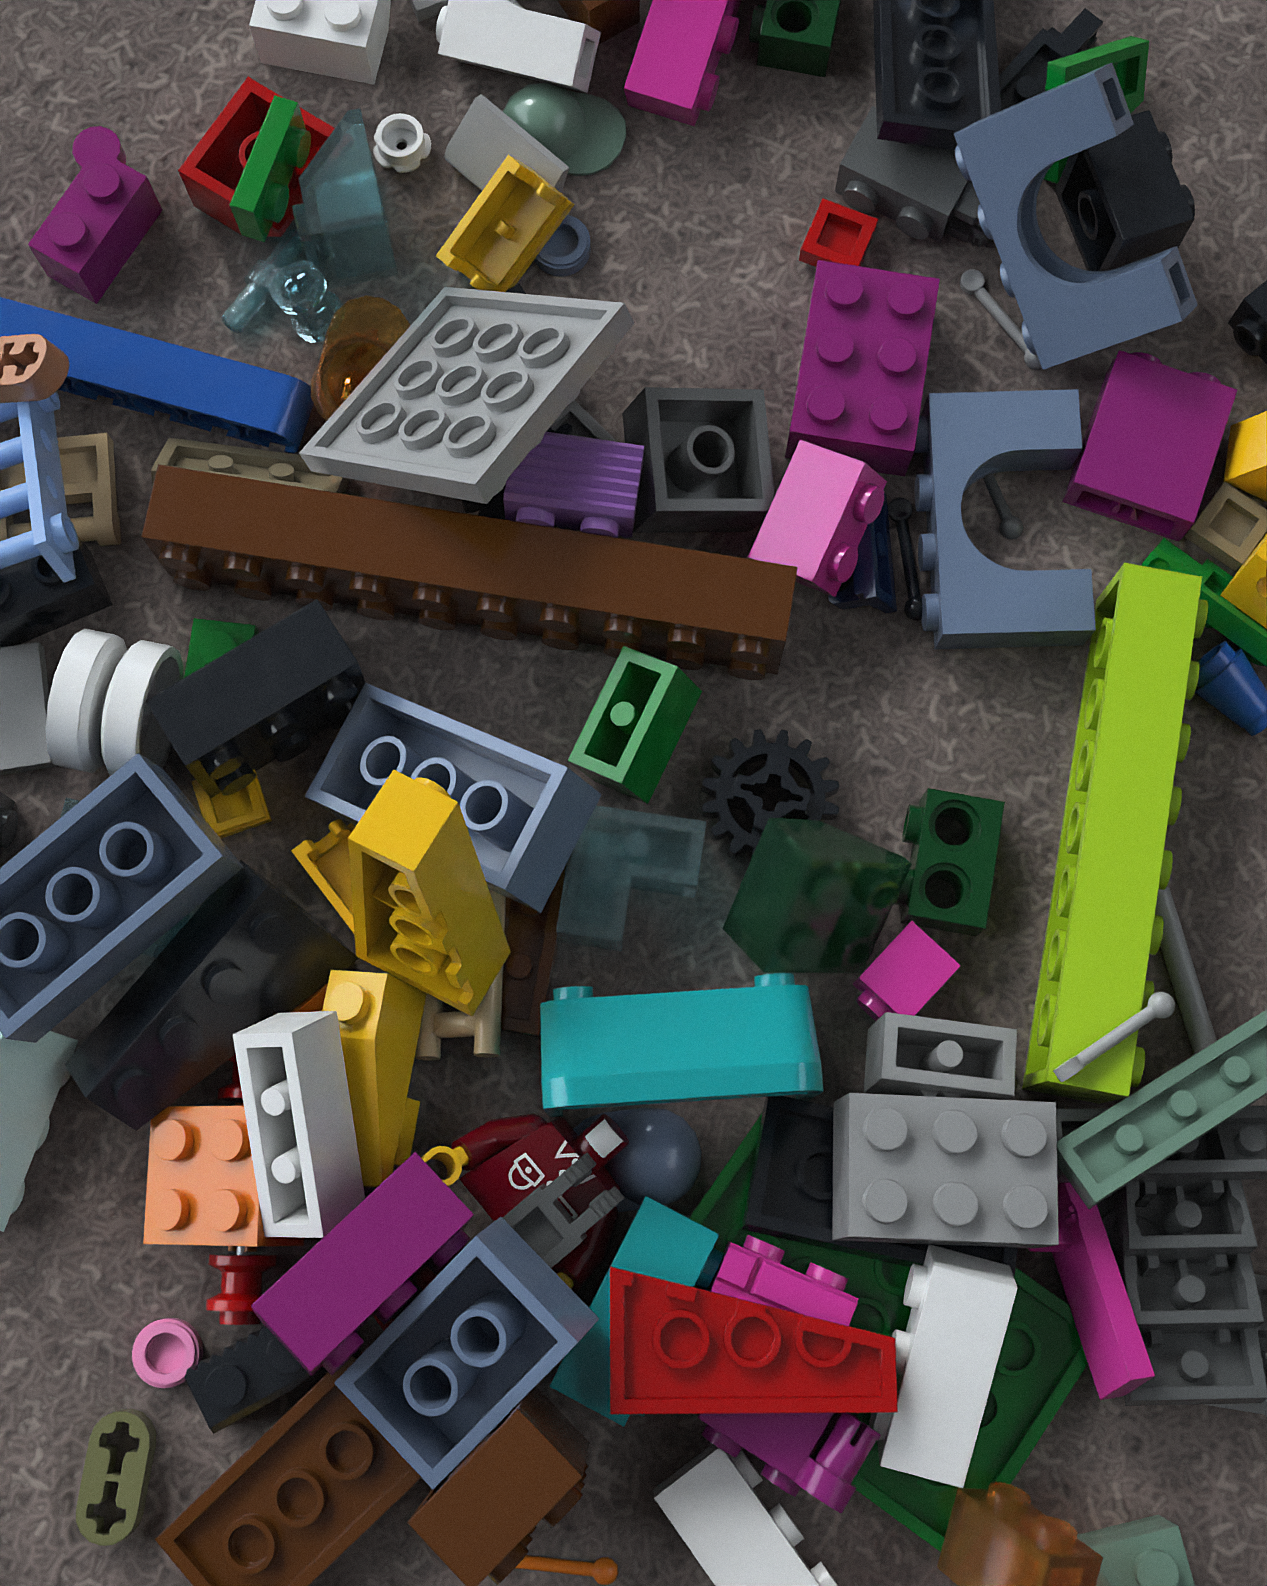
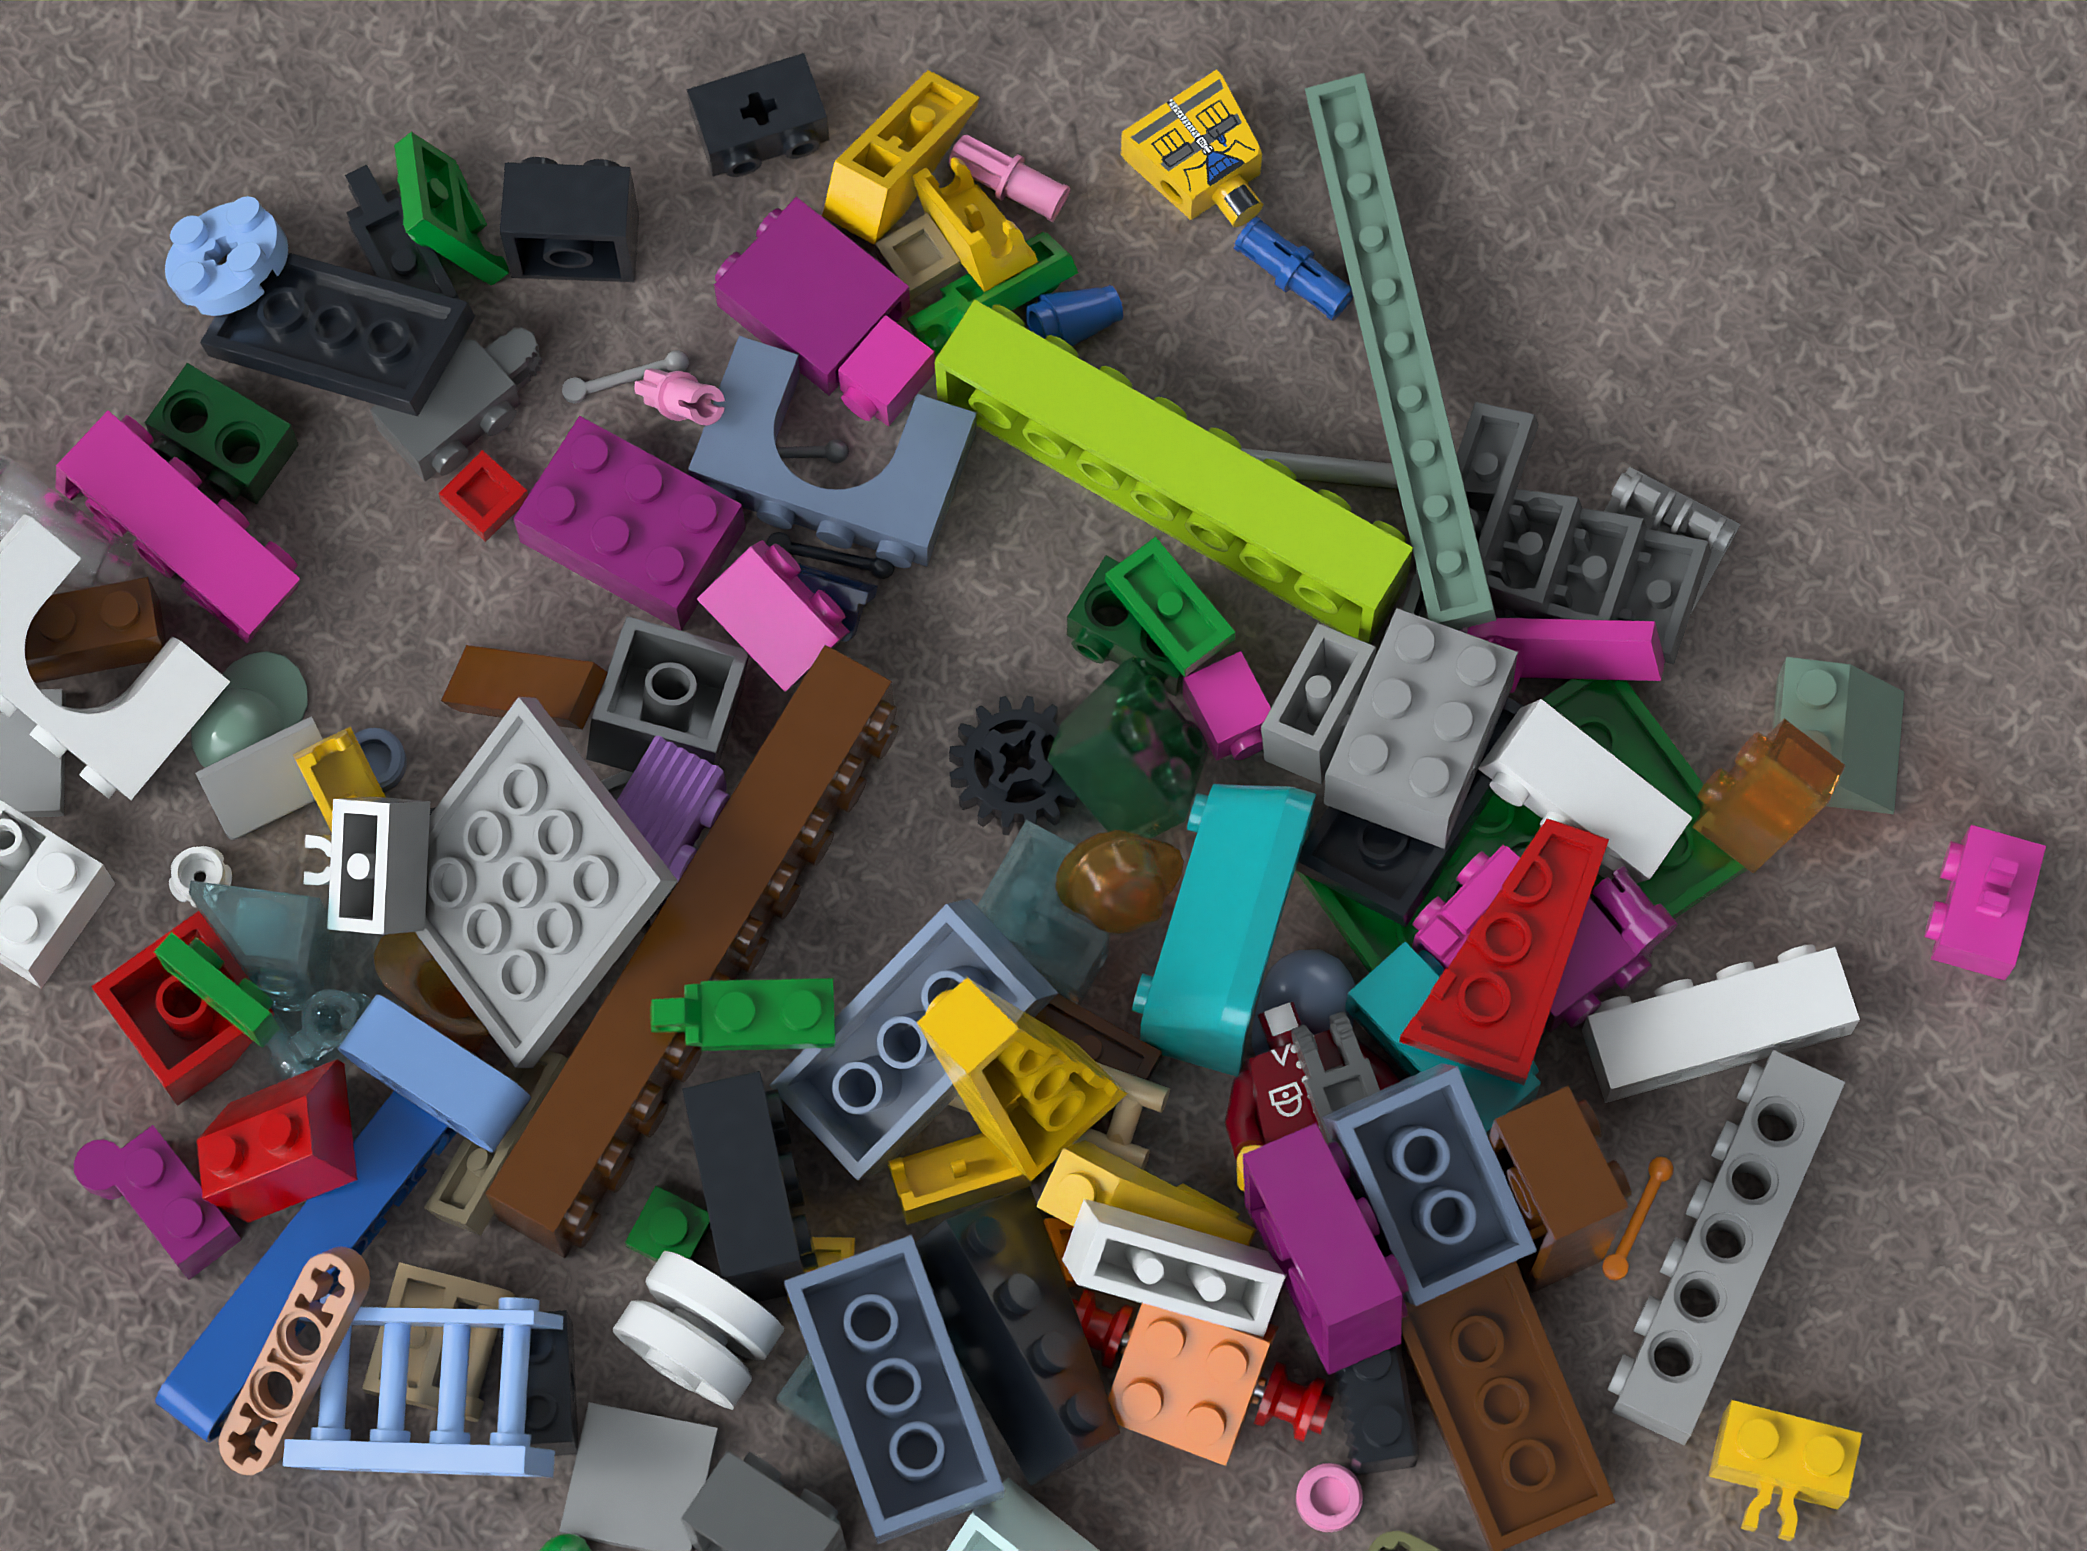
camera: 70 degrees left, 5 degrees down
(168, 285) = (279, 1145): none -> red slope
(269, 387) = (434, 1073): none -> medium blue beam
(407, 633) = (750, 1014): none -> green hinge
(439, 261) = (375, 864): none -> light grey brick
(635, 724) = (902, 856): green brick -> none
(664, 333) = (493, 679): none -> reddish brown tile
(681, 932) = (1119, 879): none -> clear orange piece
(973, 879) = (1170, 606): none -> green plate
(997, 363) = (680, 396): none -> bright pink axle
(1062, 306) = (651, 315): sand blue arch -> none
(1101, 534) = (885, 372): none -> dark pink brick
(1160, 1006) = (1345, 490): light grey hinge -> none

